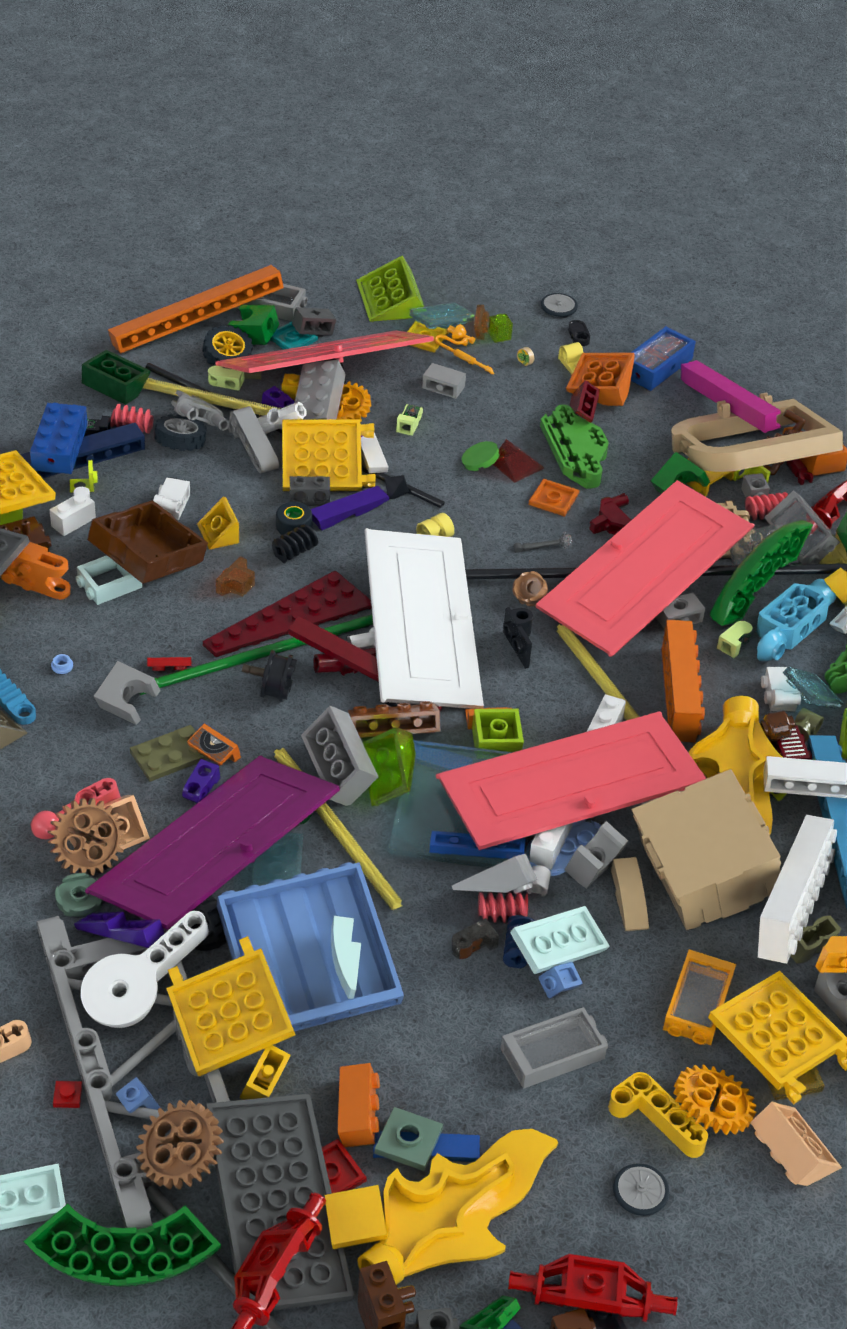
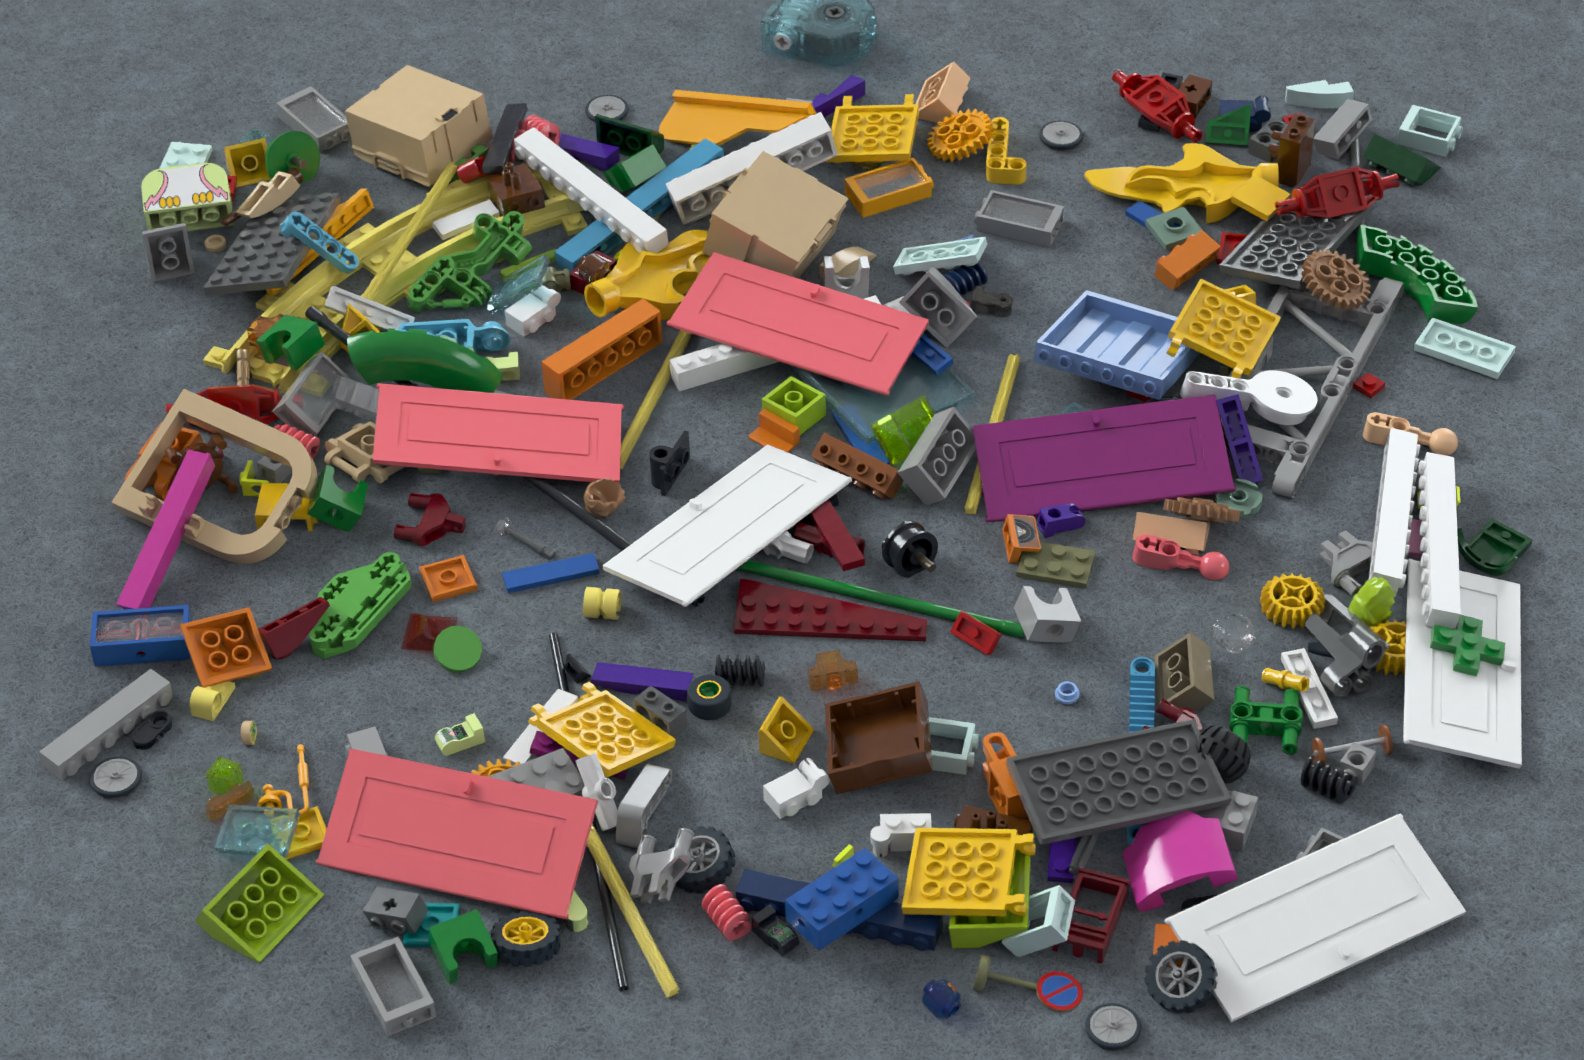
camera: 130 degrees left, 0 degrees up
(114, 376) = (685, 972): dark green slope -> none
(135, 1096) = (1325, 342): medium blue bracket -> none
(195, 308) = (502, 997): orange brick -> none
(345, 954) = (1106, 312): light aqua slope -> none
(498, 537) = (550, 573): none -> blue tile
(602, 317) = (106, 724): none -> light grey brick

